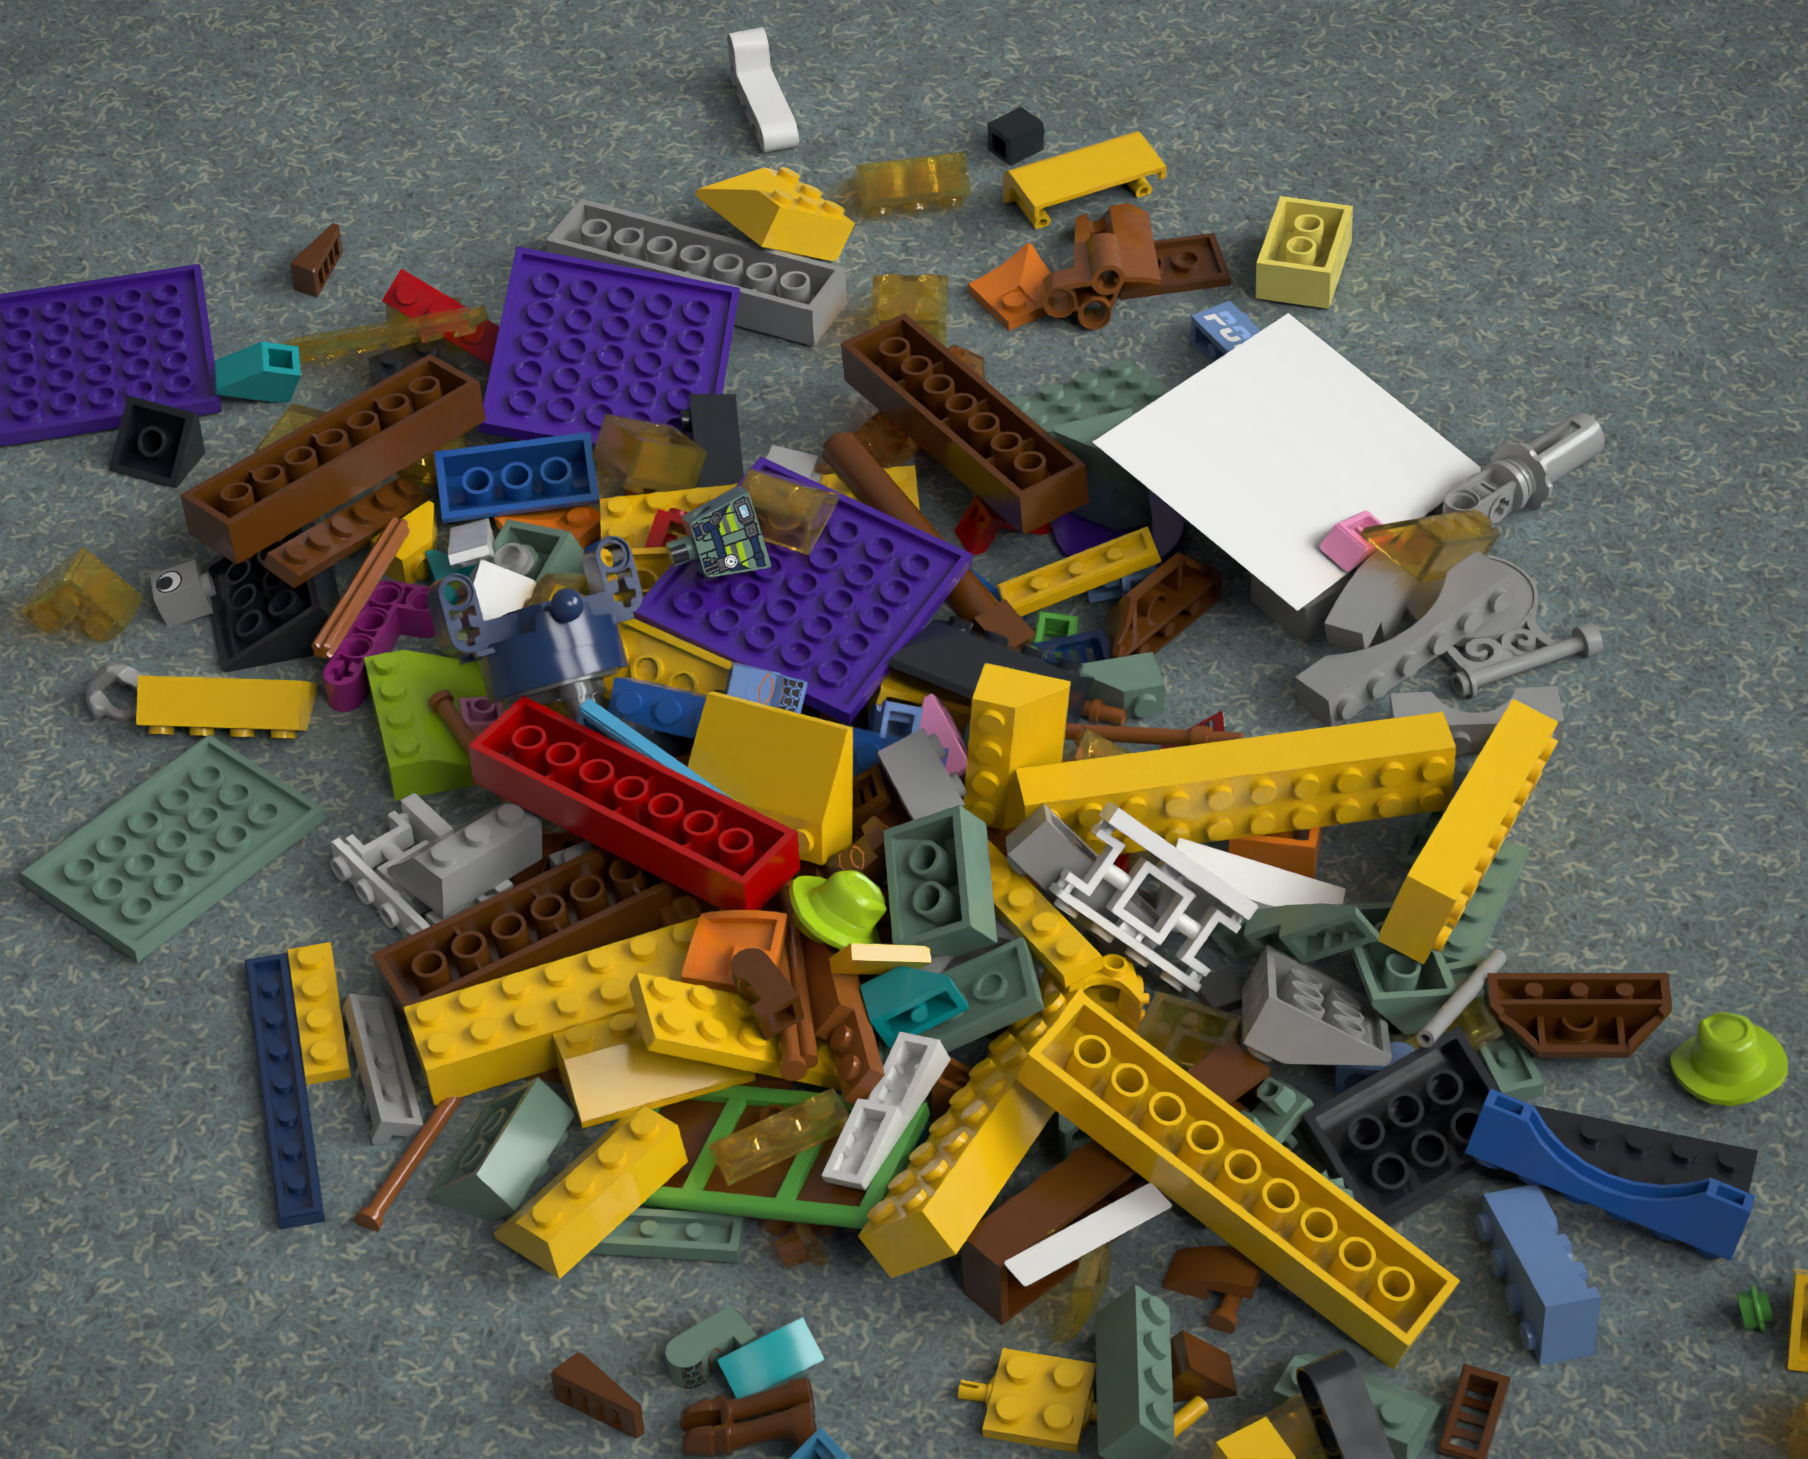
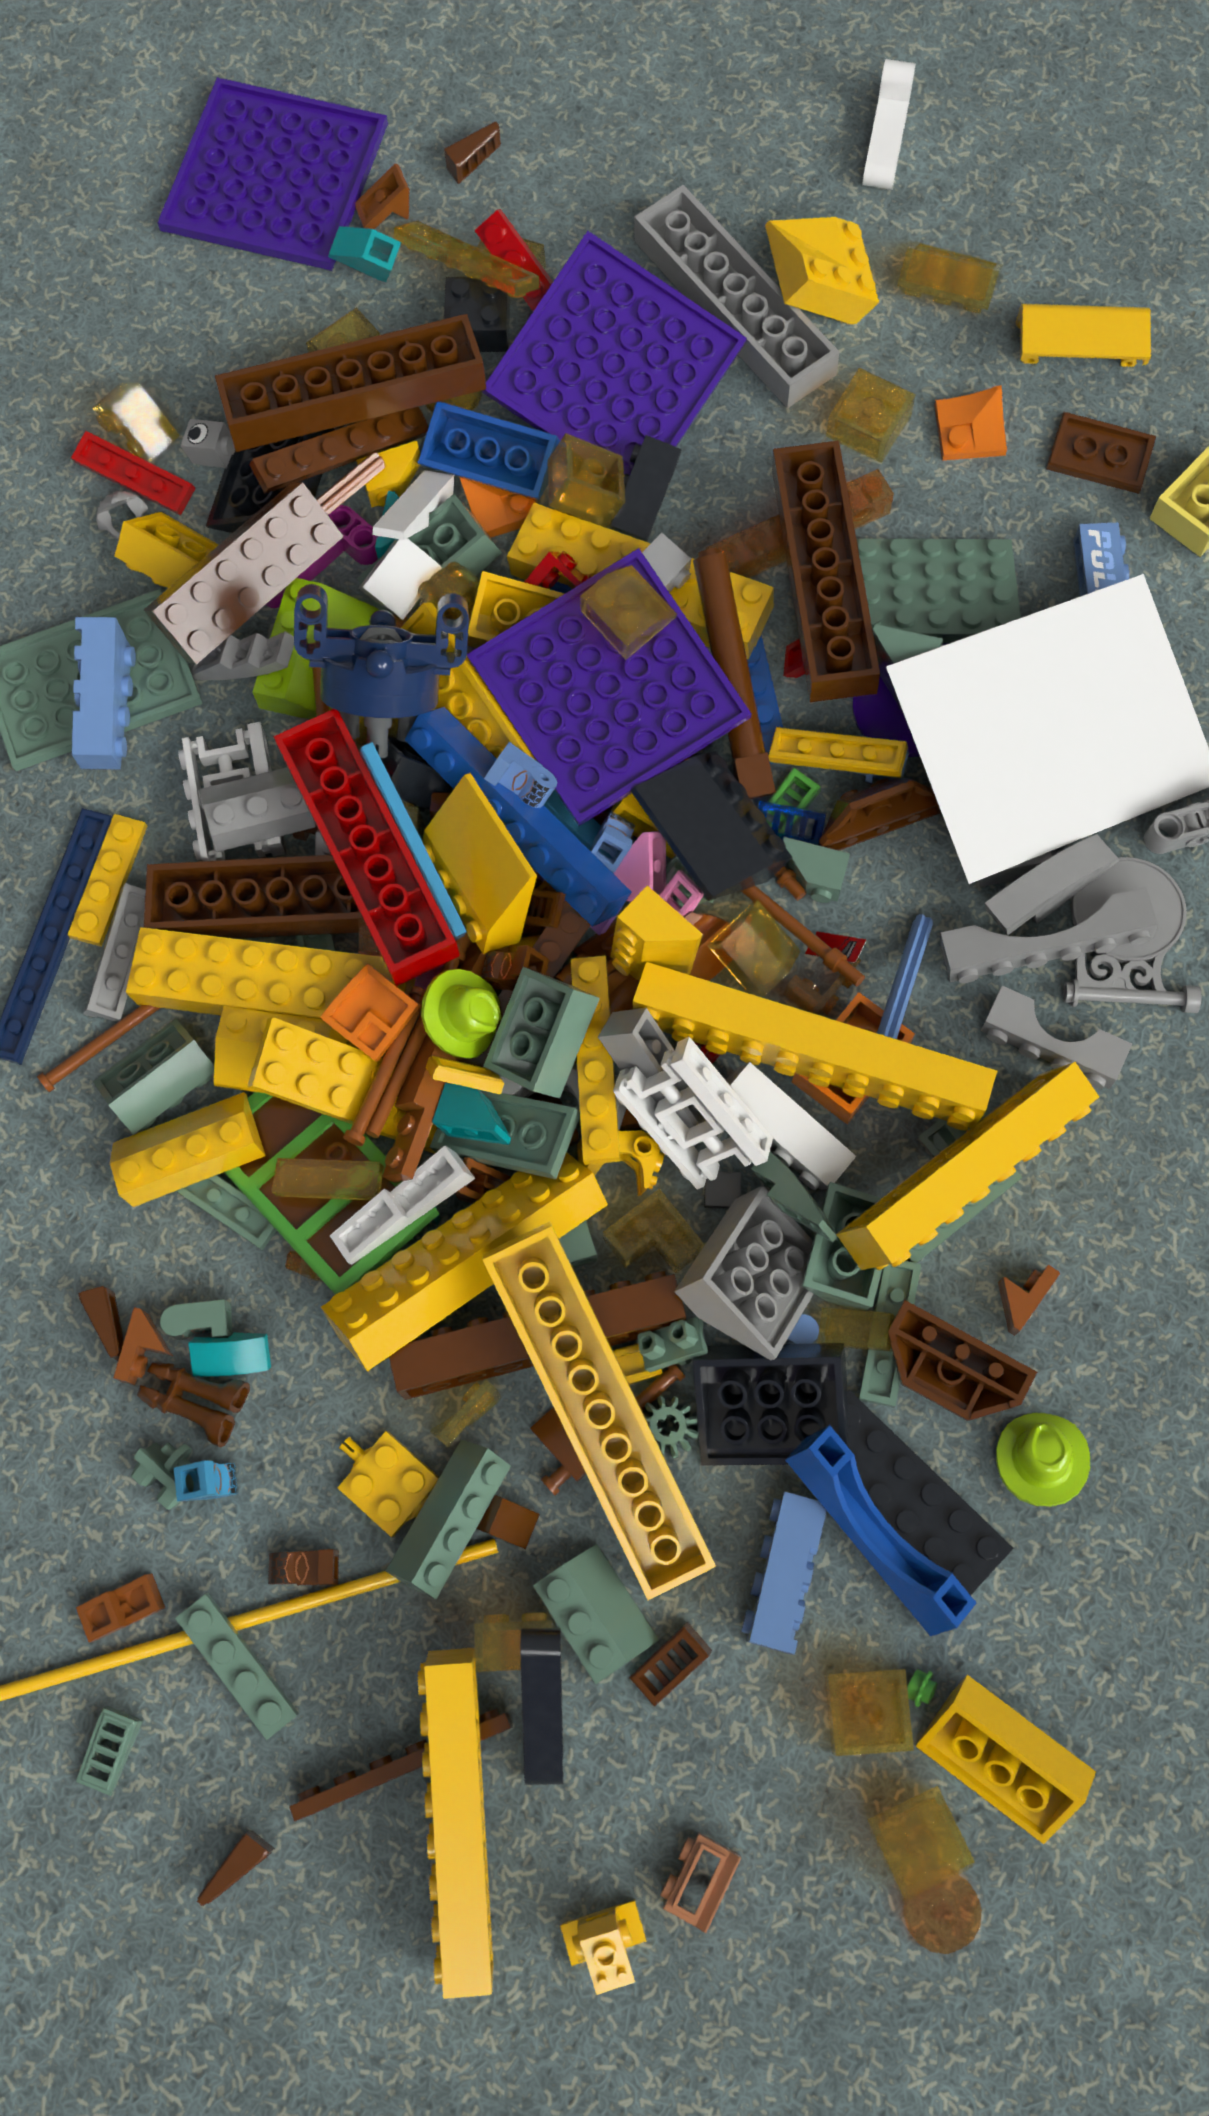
camera: 30 degrees right, 30 degrees up
(89, 650) = (133, 473): none -> red plate
(157, 442) = (264, 287): black slope -> none
(211, 829) = (101, 693): none -> medium blue wedge
(250, 320) = (383, 198): none -> dark orange slope
(317, 658) = (244, 572): none -> brick
(349, 749) = (245, 657): none -> light grey slope
(514, 558) = (433, 540): light grey plate -> none
(661, 1393) = (140, 1336): none -> dark orange slope
(722, 537) = (554, 627): torso -> none
(773, 997) = (364, 1069): reddish brown leg -> none
(920, 776) = (582, 925): light grey brick -> none
(1015, 136) = (1060, 260): black brick -> none
(1087, 1234) = (472, 1397): white sticker -> none
(1105, 256) = (1048, 435): dark orange panel -> none
(1278, 707) = (905, 977): none -> medium blue axle
(1346, 544) = (1060, 830): bright pink slope -> none
(1433, 543) = (1116, 859): clear yellow slope -> none
(1460, 999) = (868, 1317): light grey piece -> none
(1603, 942) = (1019, 1304): none -> dark orange slope
(1715, 1344) = (868, 1712): none -> clear yellow brick

